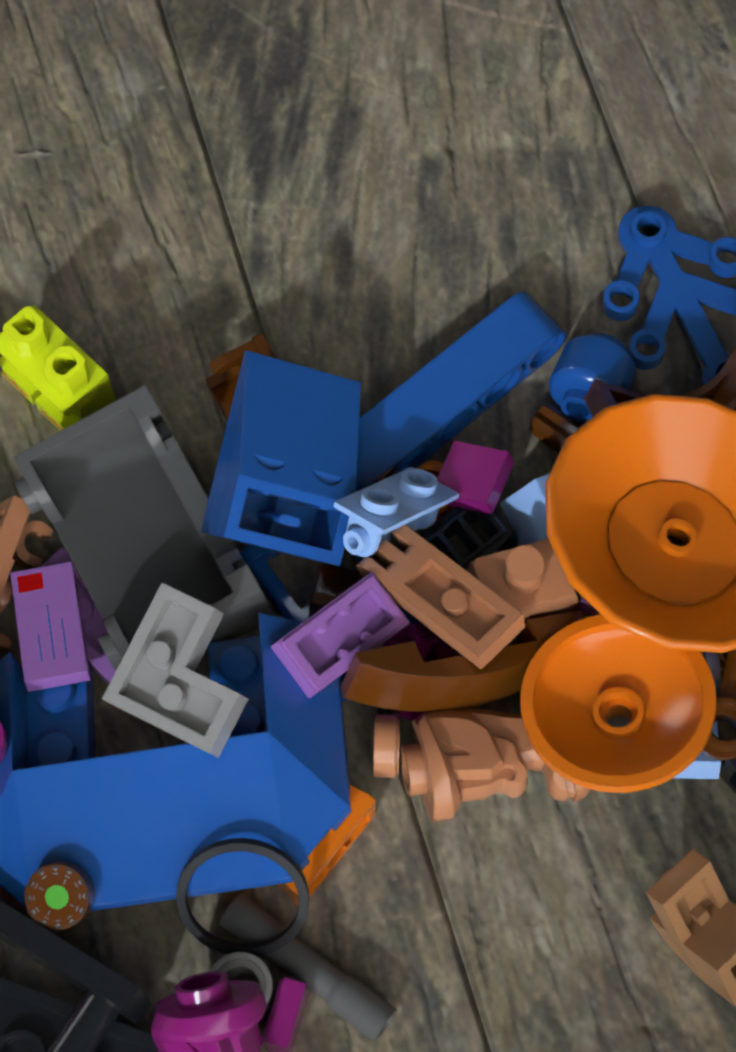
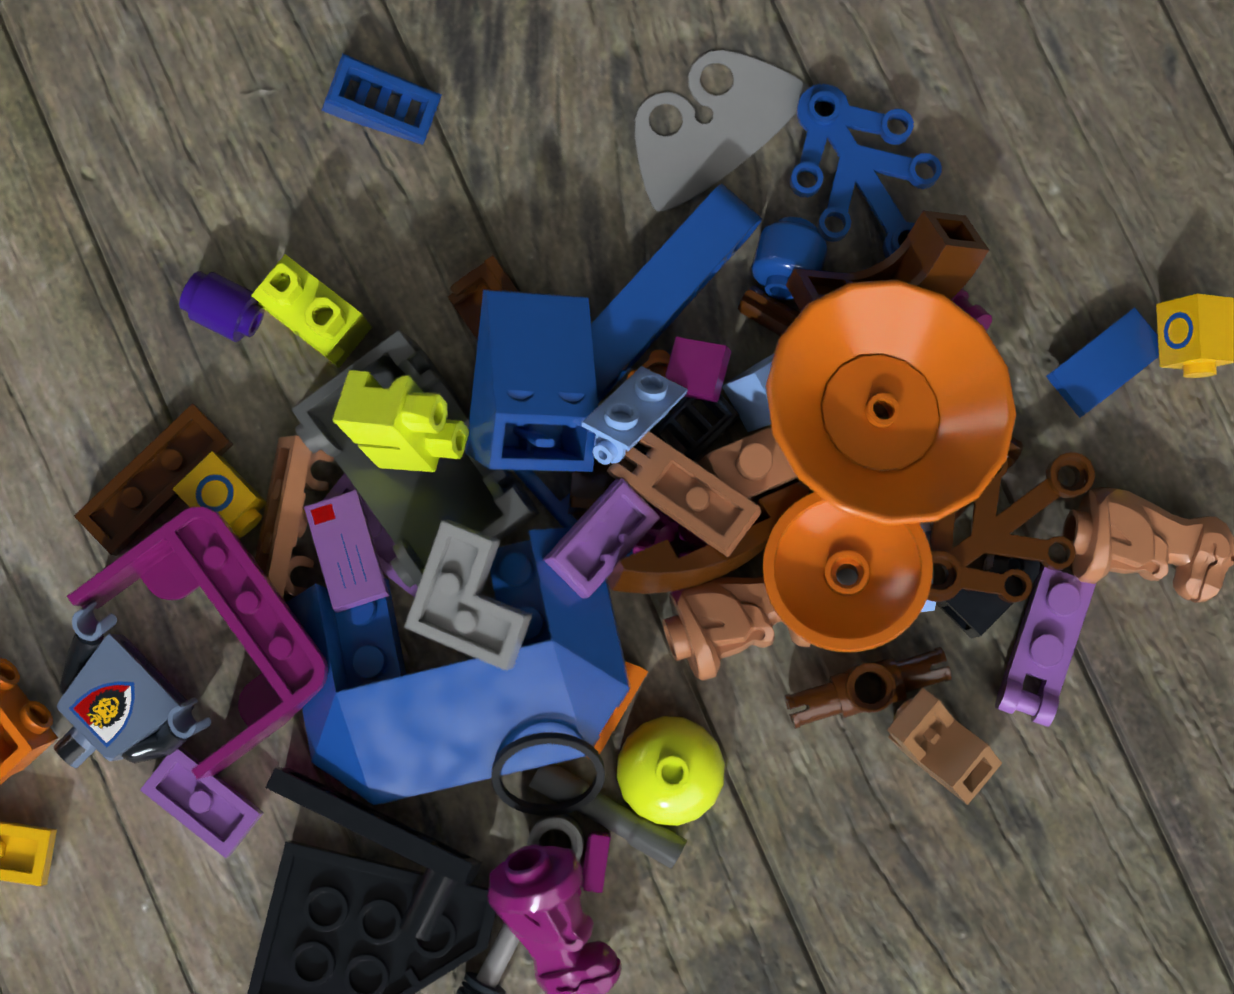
camera: 10 degrees left, 15 degrees up
(59, 895) = (392, 791): reddish brown tile -> none
(130, 485) = (399, 424): none -> neon yellow hips
(154, 146) = (370, 76): none -> blue slope
(386, 746) = (650, 618): nougat tile -> none
(388, 927) = (670, 770): none -> neon yellow cylinder
(556, 239) = (703, 154): none -> light grey piece
(599, 865) = (894, 678): none -> reddish brown pin

